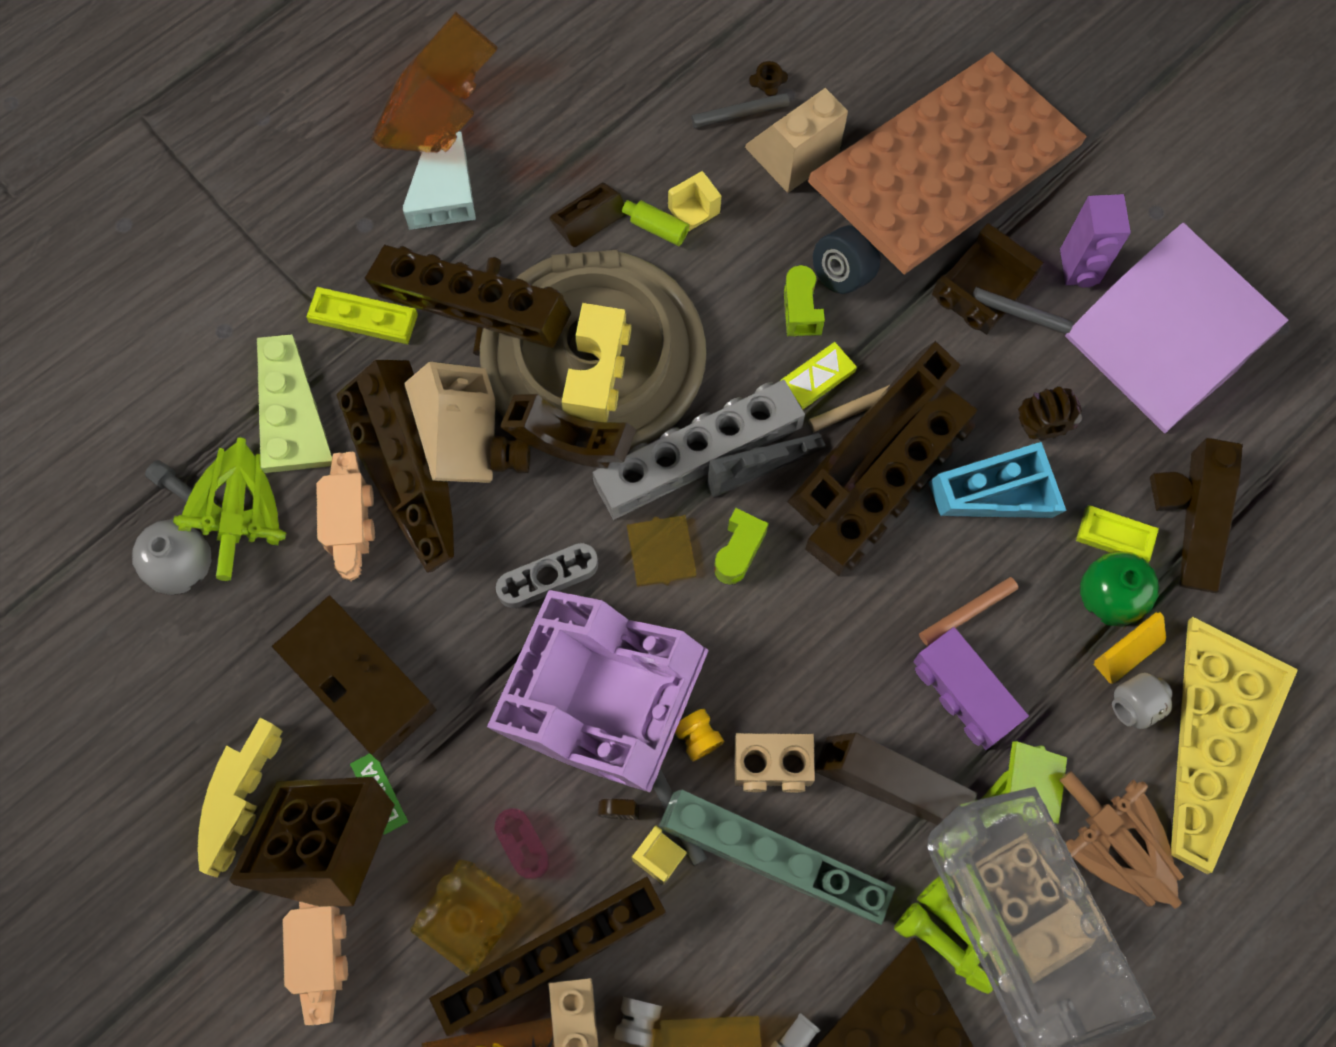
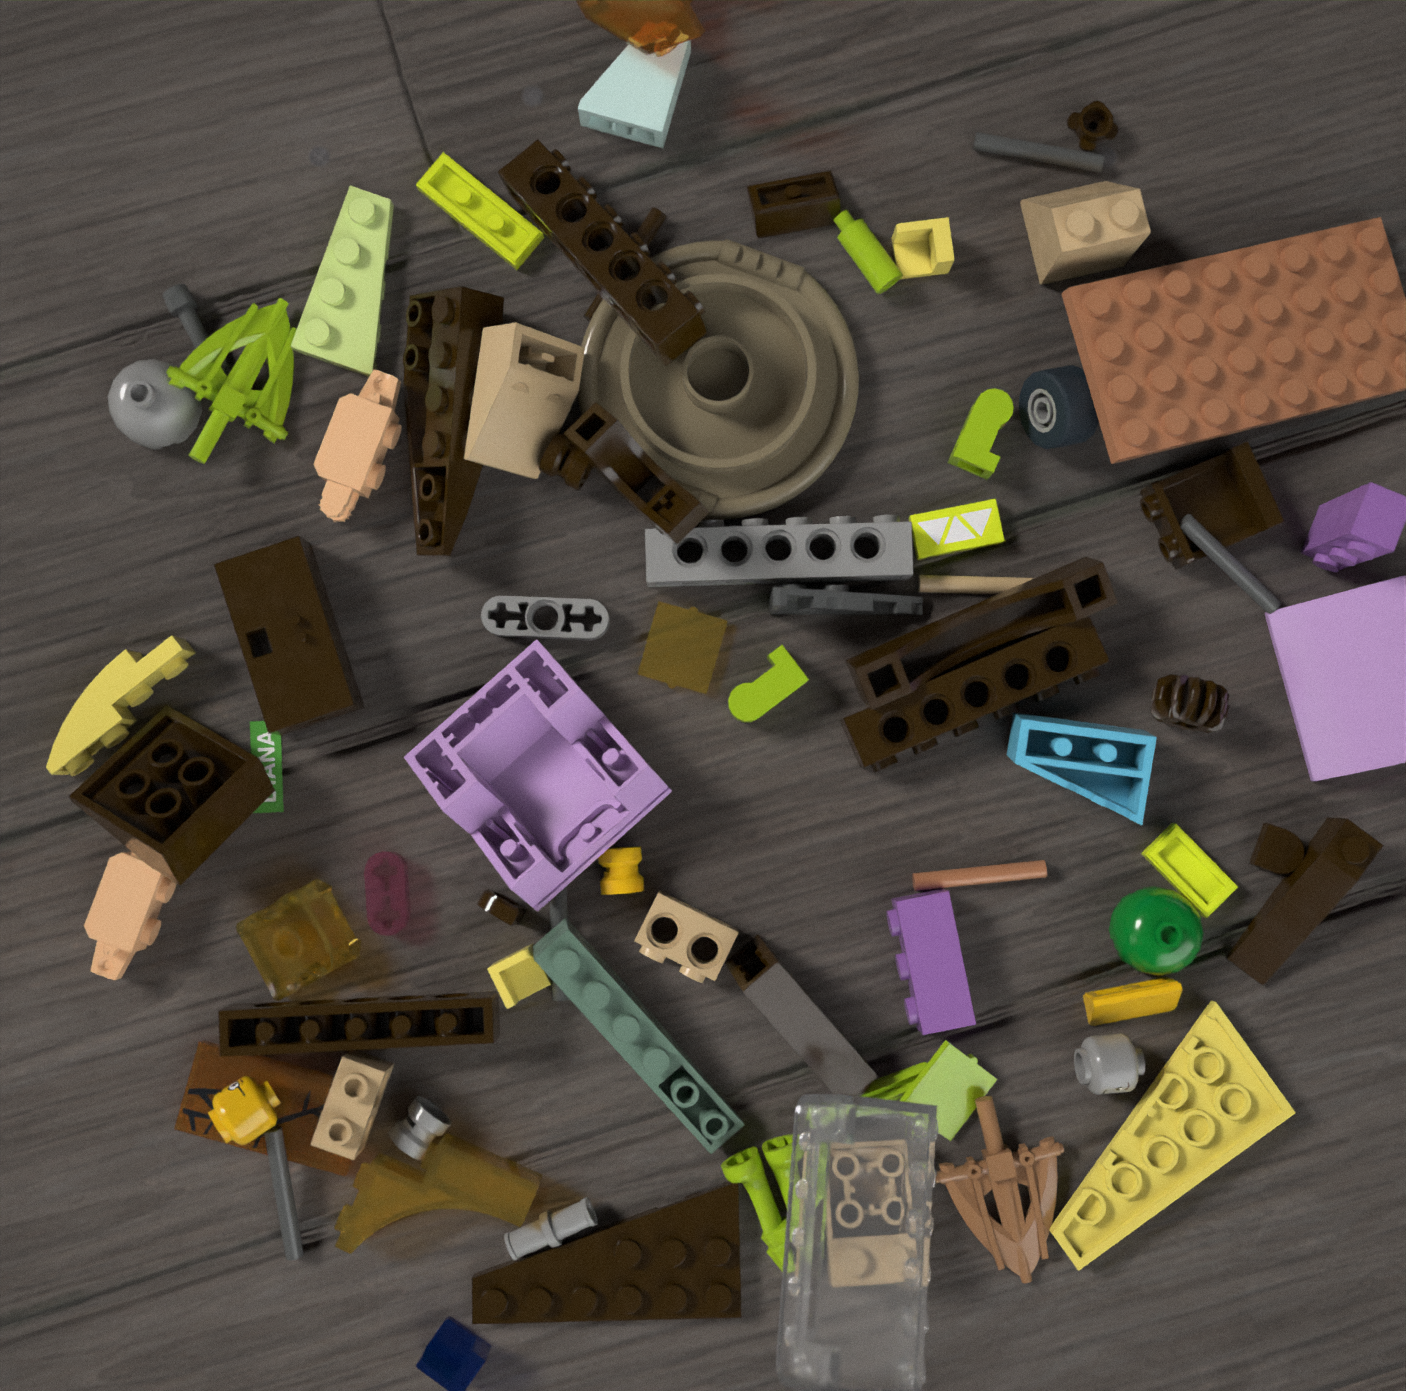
camera: 25 degrees right, 15 degrees up
(592, 392) = (684, 440): light yellow arch -> none

